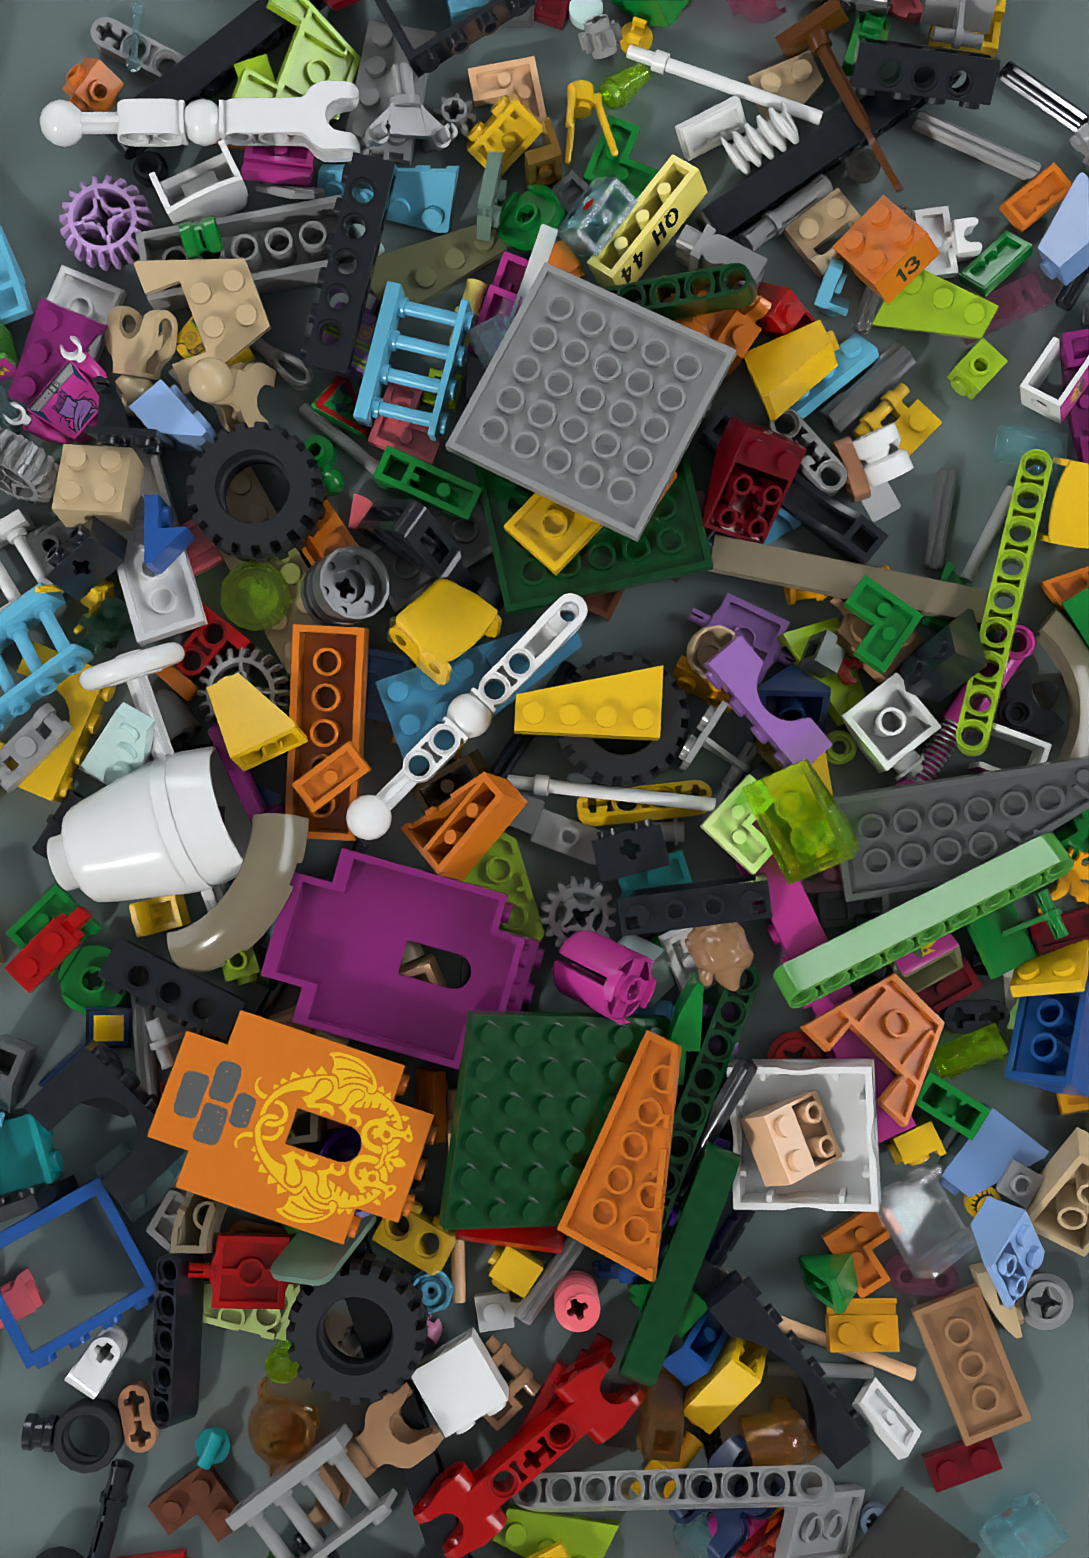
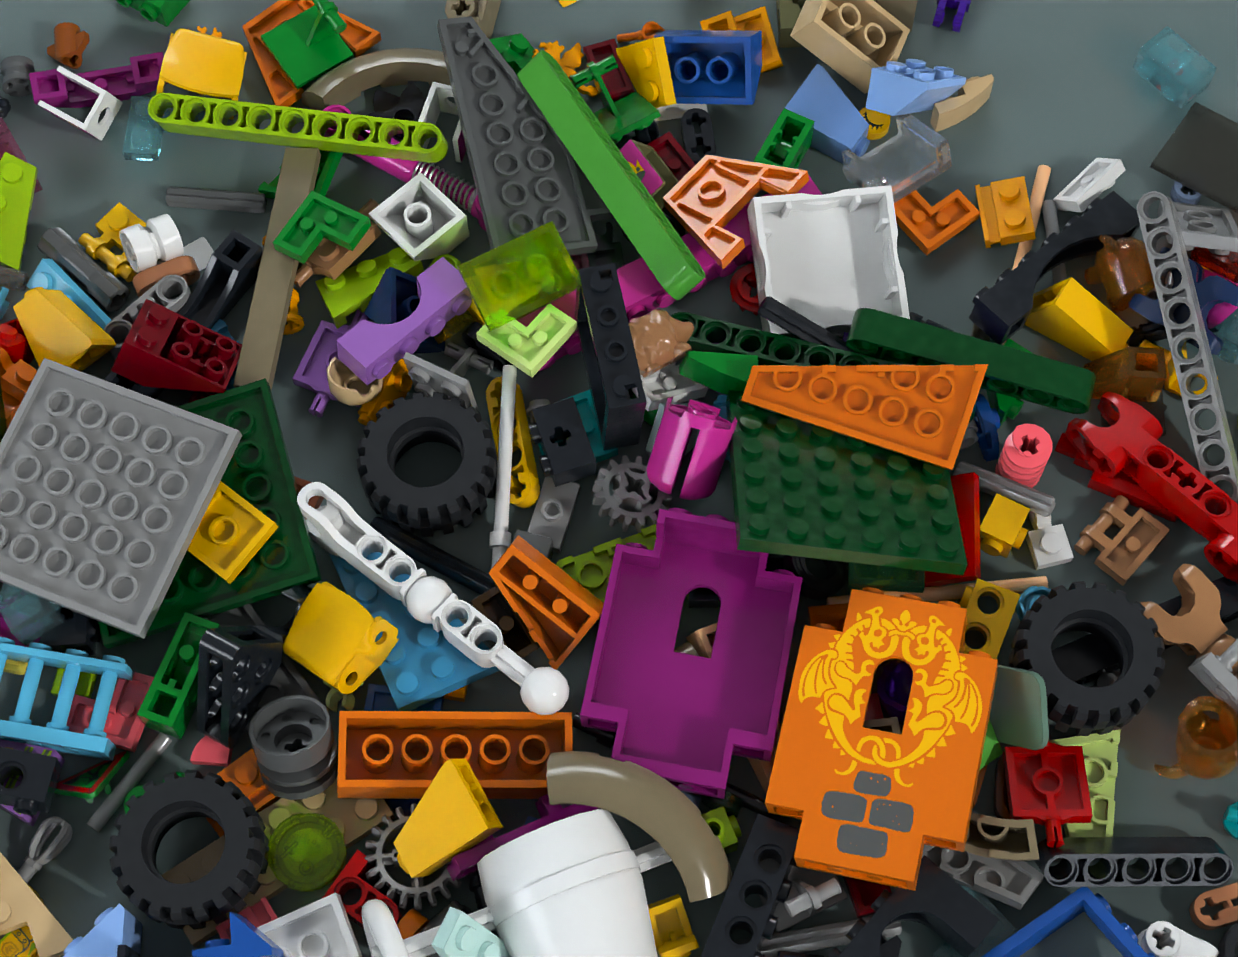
camera: 95 degrees left, 20 degrees down
(231, 389) = (74, 890): tan piece -> none
(279, 1367) = (1144, 744): clear neon green wheel -> none
(331, 776) = (503, 732): orange plate -> none
(460, 1383) = (1126, 557): white piece -> none
(601, 707) = (416, 461): yellow wedge -> none
(697, 1350) = (1053, 343): blue slope -> none
(791, 1139) = (834, 276): light nougat slope -> none
(826, 658) = (356, 276): pearl dark grey piece -> none
(830, 1279) = (965, 239): green slope -> none
(909, 765) = (461, 198): light grey plate -> none
(915, 1143) = (824, 172): yellow brick -> none
(920, 1286) = (959, 170): clear pink plate -> none
(945, 660) = (353, 171): black slope -> none
(960, 1463) = (1118, 124): dark red plate -> none
(970, 1364) = (1025, 120): medium nougat plate -> none
(972, 1049) = (730, 133): clear neon green hinge -> none
(976, 369) = (66, 175): lime brick -> none
(987, 536) = (231, 158): light grey bar -> none
(1019, 1183) = (851, 85): light grey bracket -> none
(1054, 1313) = (968, 59): light grey gear -> none

